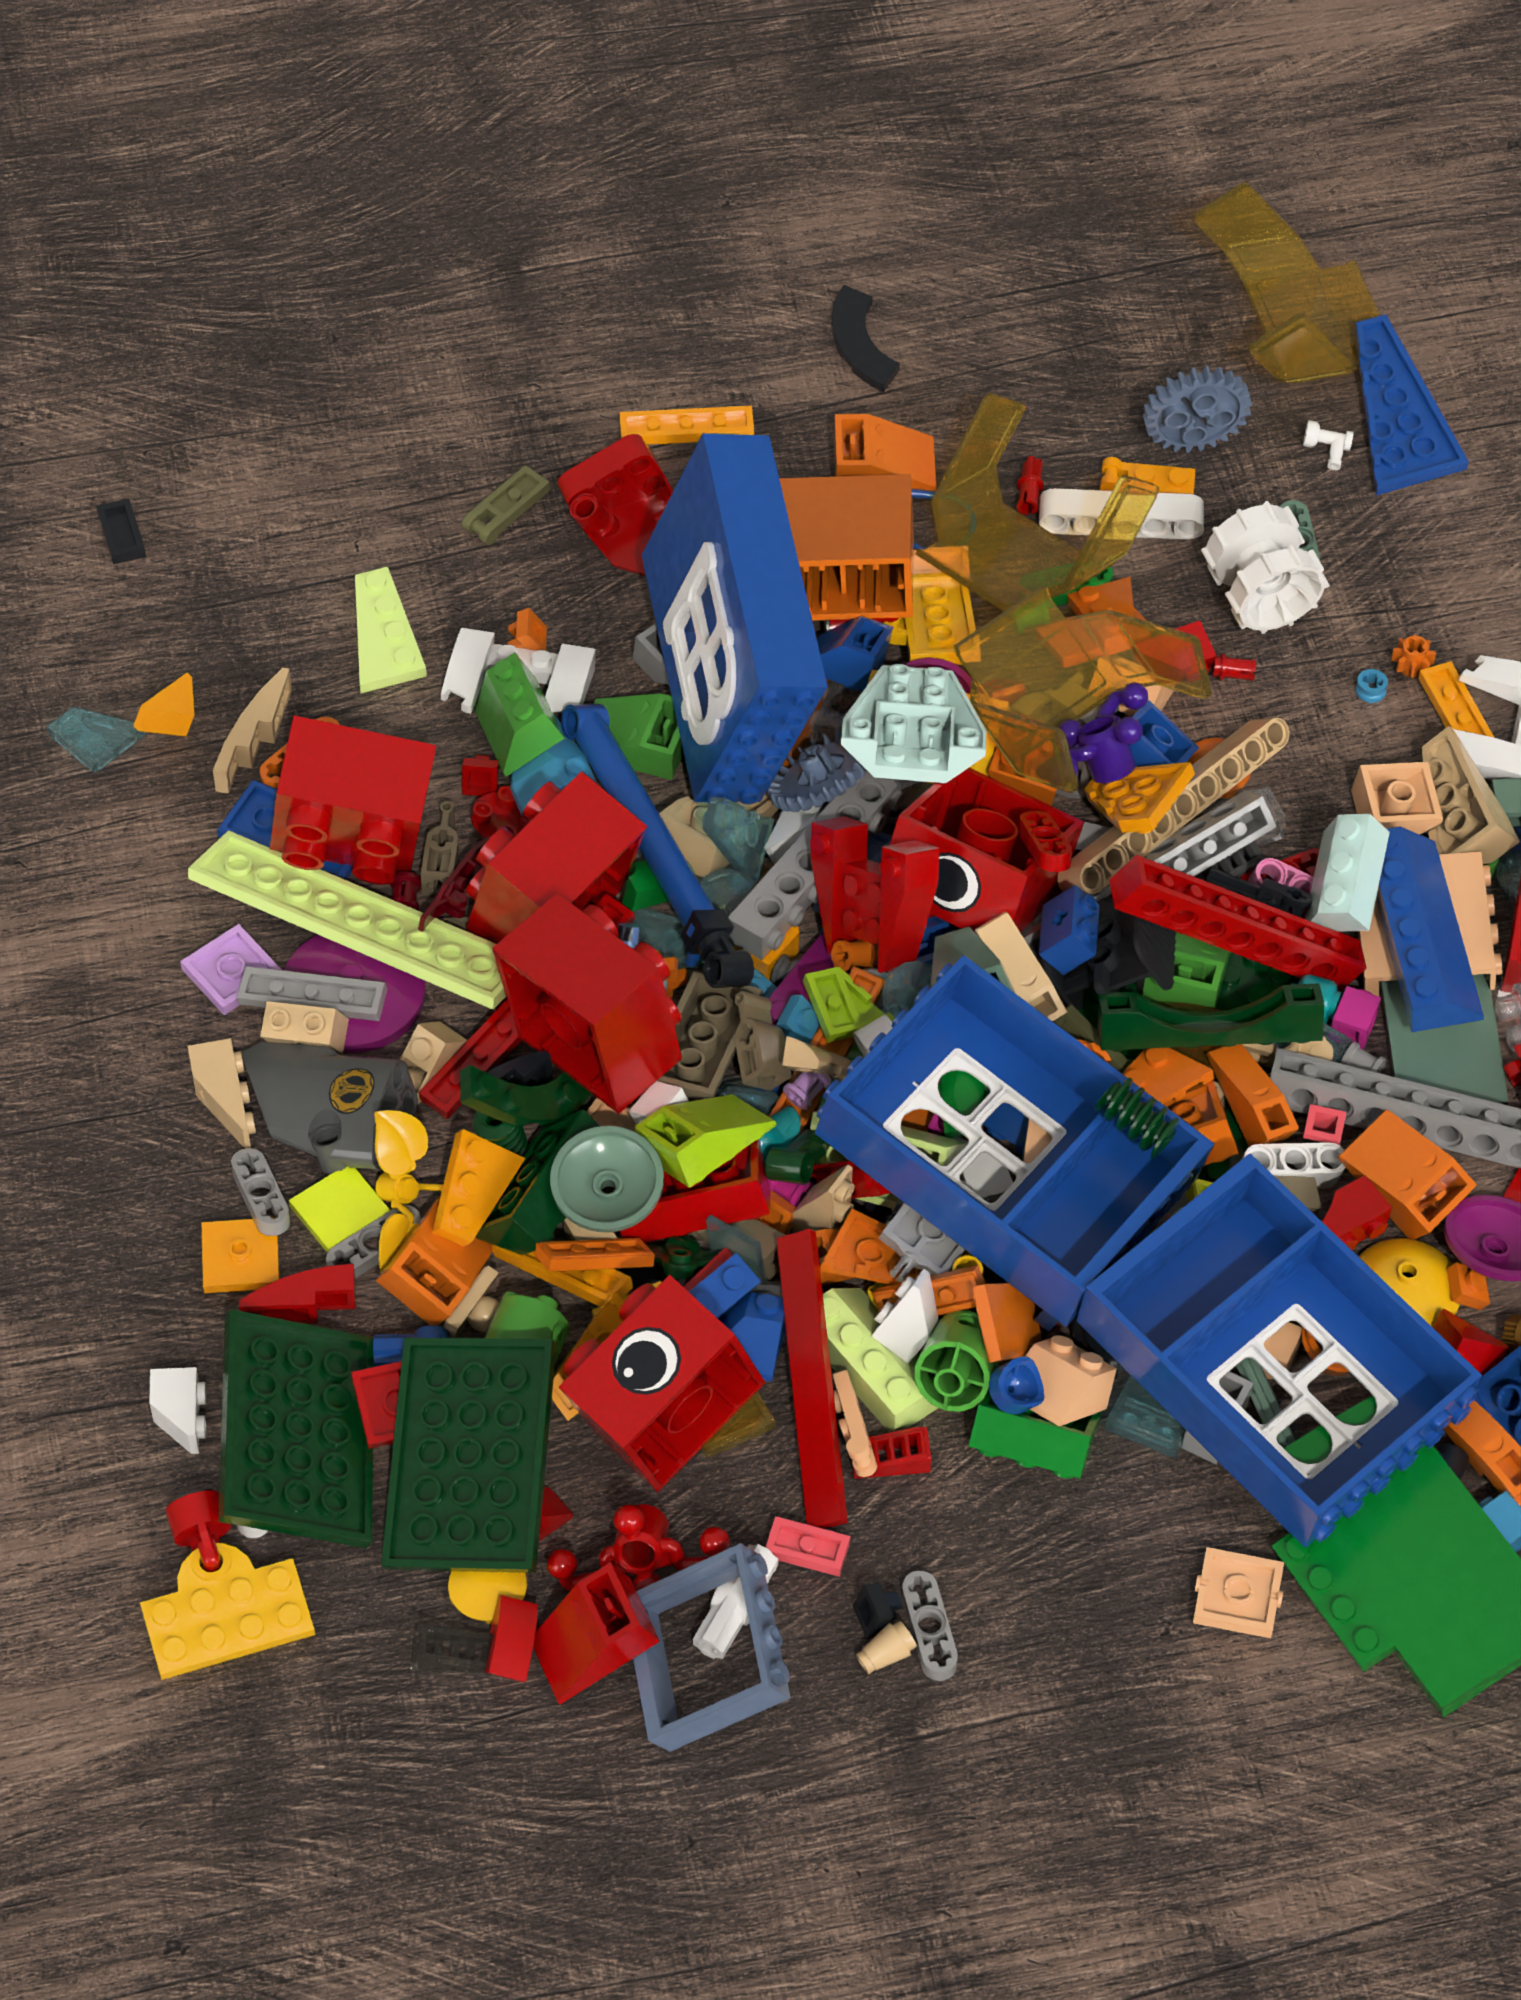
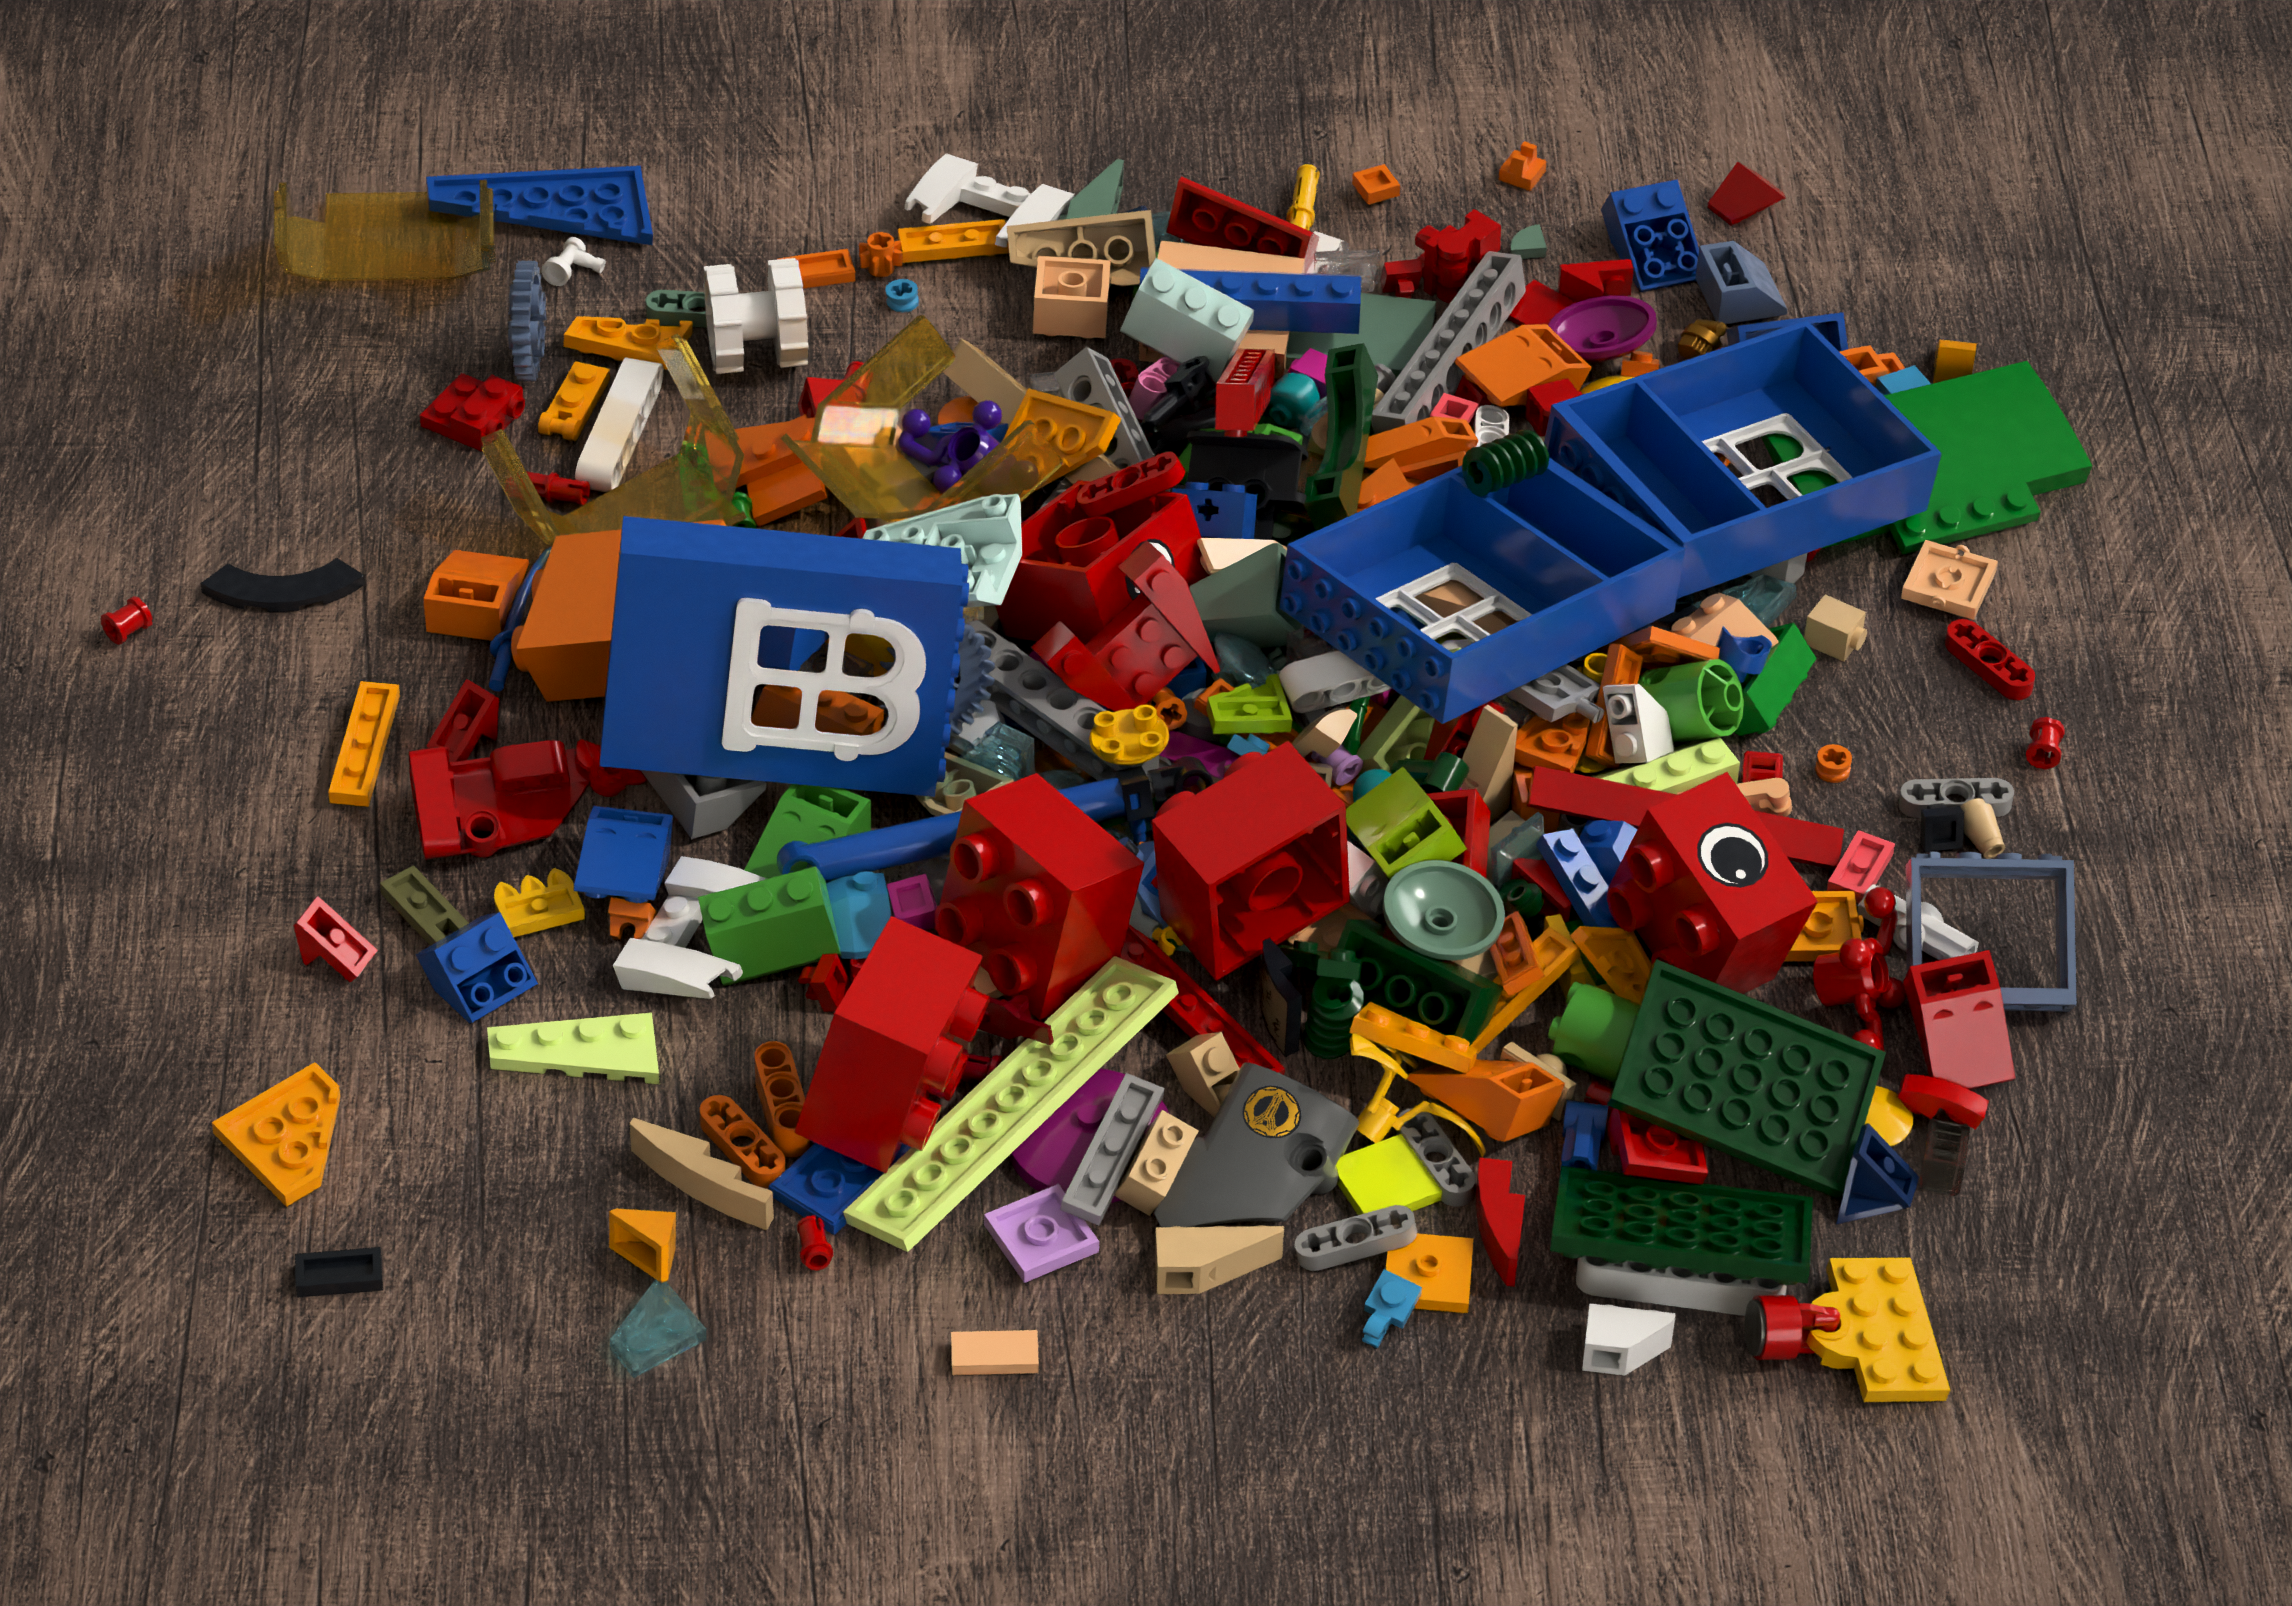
camera: 80 degrees left, 10 degrees down
(102, 961) = (994, 1352): none -> light nougat tile
(189, 1228) = (1389, 1303): none -> dark azure plate
(193, 819) = (815, 1250): none -> red pin
(251, 466) = (285, 1132): none -> light orange plate
(402, 1589) = (1876, 1179): none -> dark blue slope
(448, 545) = (477, 967): none -> blue slope
(450, 446) = (328, 935): none -> red slope
(529, 572) = (538, 905): none -> yellow plate
(576, 606) = (624, 854): none -> blue slope
(723, 1504) = (1828, 926): none -> light orange plate
(760, 908) = (1128, 735): none -> yellow dish
(786, 249) = (126, 620): none -> red bush
(953, 1502) = (1833, 763): none -> orange bush
(1021, 1696) = (2051, 735): none -> red bush
(1110, 416) = (474, 409): none -> red plate
(1133, 1493) = (1835, 628): none -> tan brick
(1139, 1624) = (2008, 676): none -> red beam
(1232, 487) = (619, 340): none -> light orange wing
(1384, 616) = (825, 268): none -> orange tile

